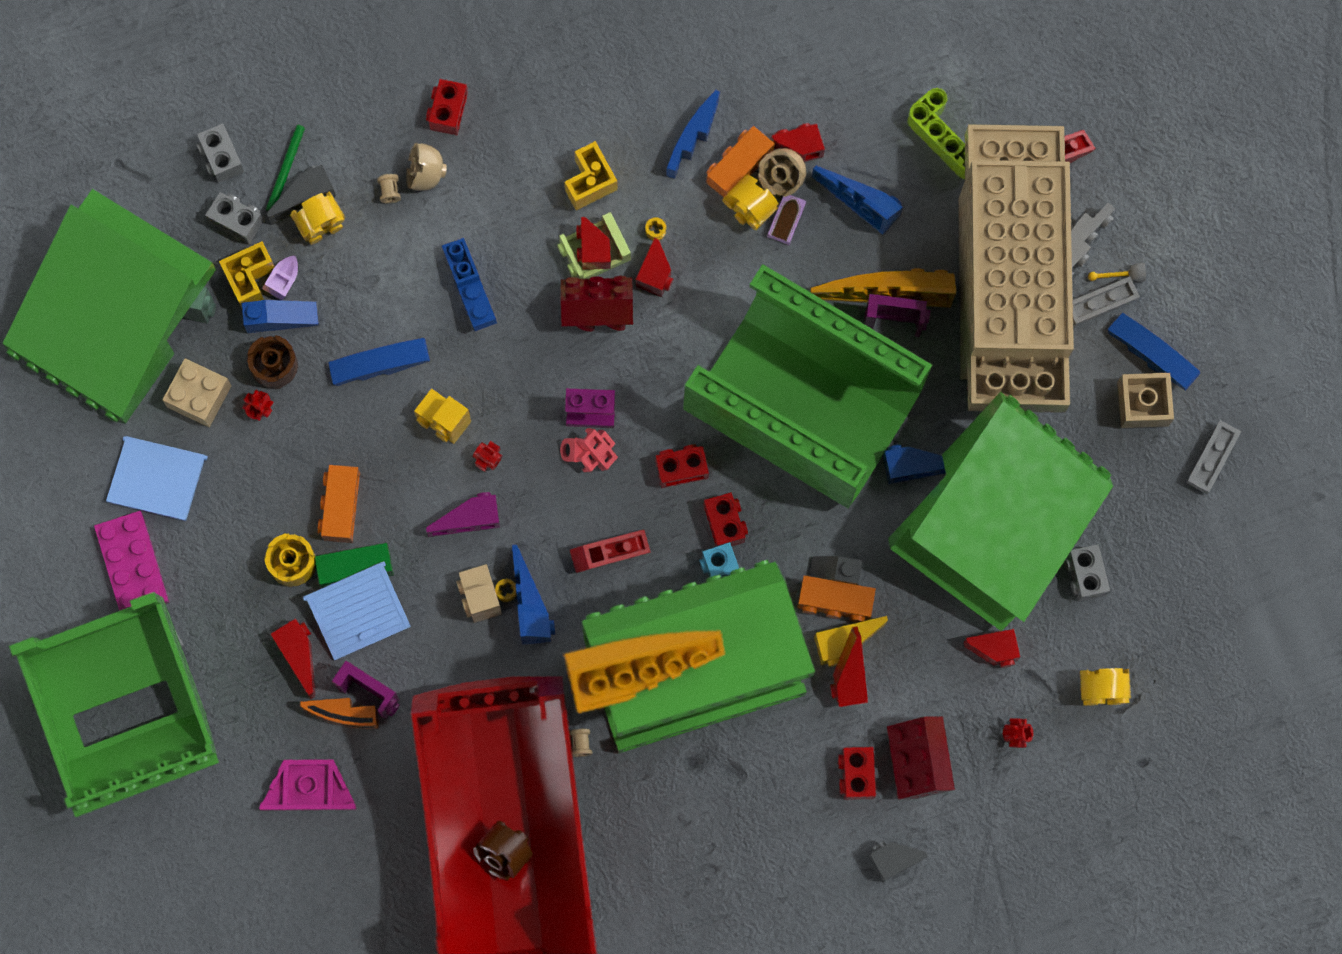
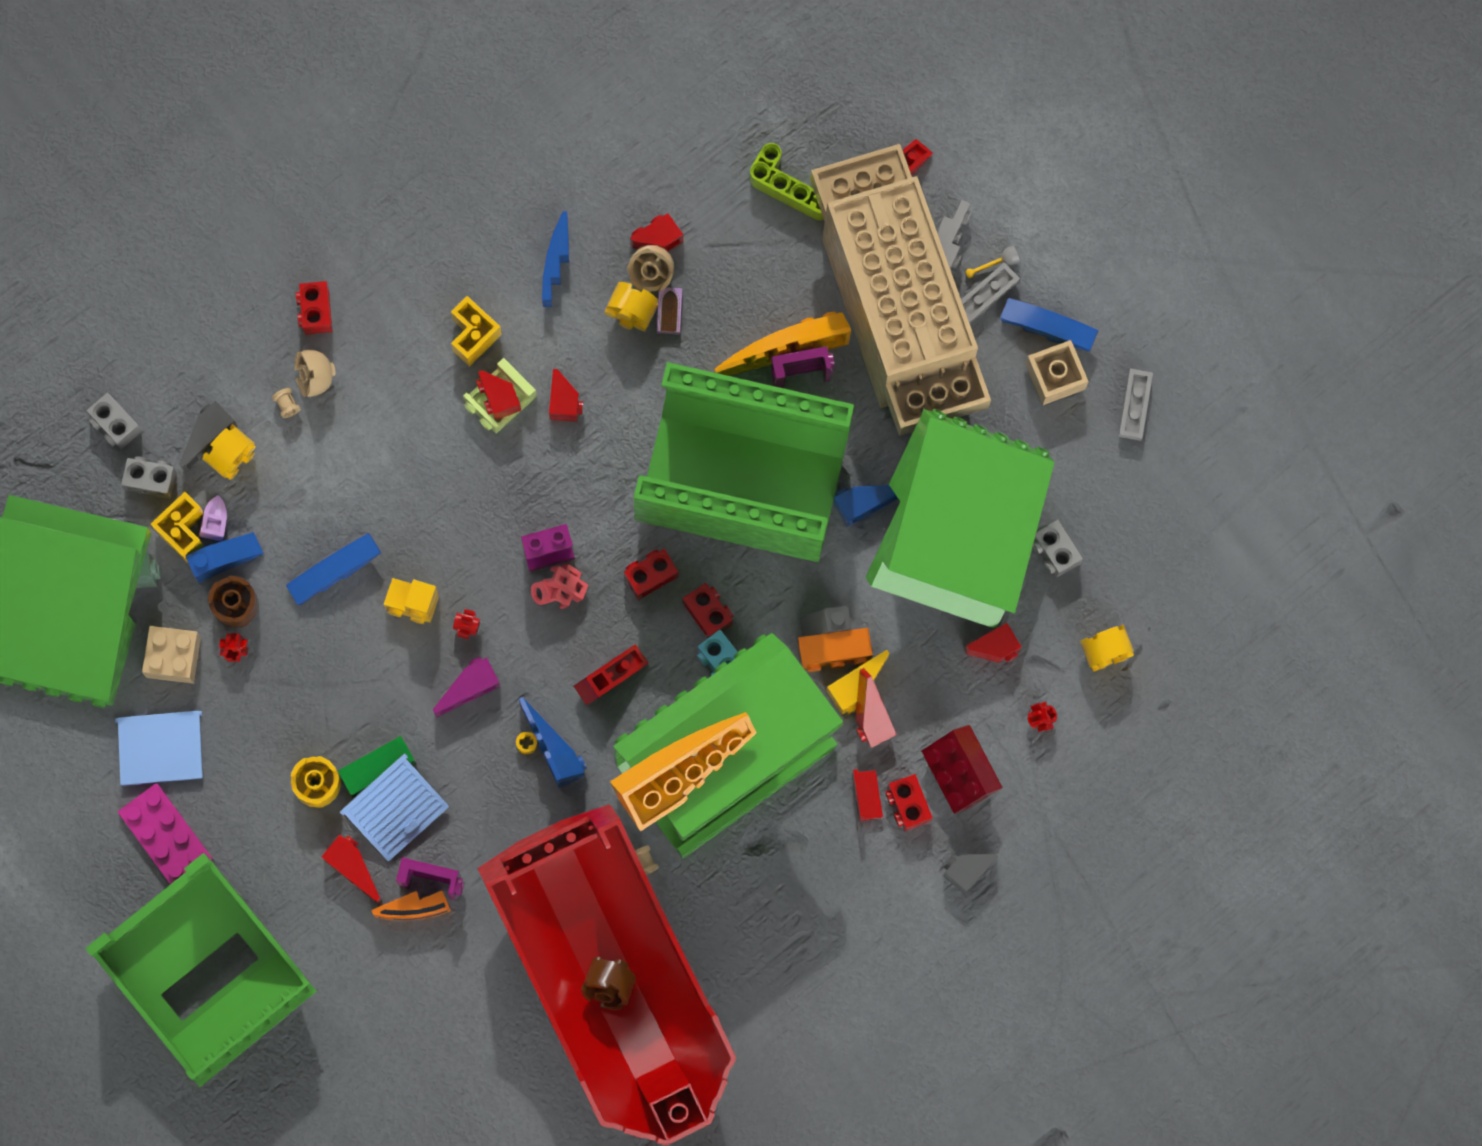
camera: 20 degrees left, 0 degrees up
(286, 166) = (180, 414): green bar -> none
(308, 787) = (405, 987): dark pink wing -> none
(339, 503) = (342, 714): orange brick -> none
(469, 284) = (393, 469): blue slope -> none
(480, 594) = (504, 754): tan brick -> none
(597, 302) = (520, 446): dark red piece -> none
(660, 224) = (547, 366): yellow bush -> none
(739, 161) = (607, 271): orange brick -> none
(819, 752) = (867, 795): none -> red panel
(869, 203) = (740, 271): blue wedge -> none

